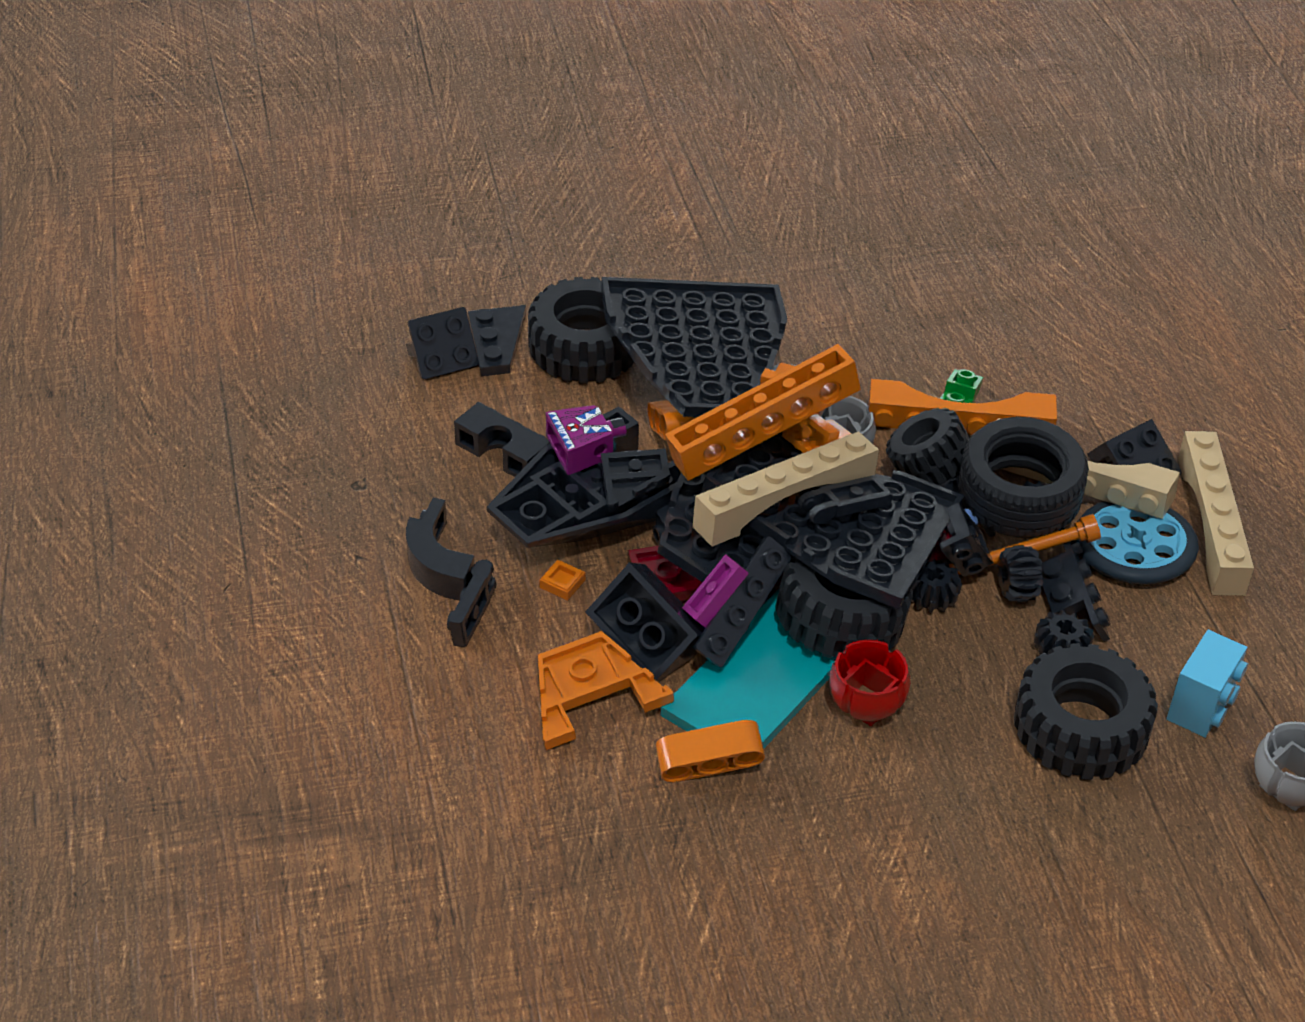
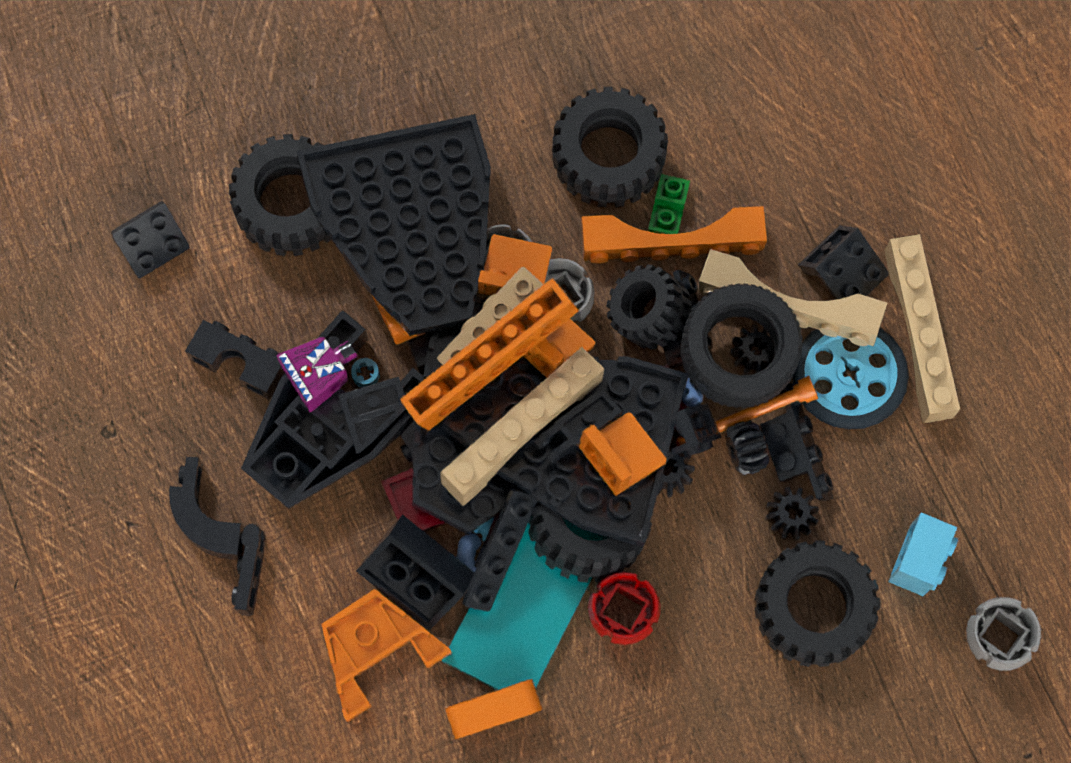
camera: 10 degrees left, 30 degrees up
(496, 337) = (198, 204): black wing -> none
(562, 580) = (326, 520): orange tile -> none
(715, 590) = (474, 547): magenta panel -> none
(883, 526) = (621, 452): none -> orange bracket
(931, 331) = (614, 111): none -> black tyre

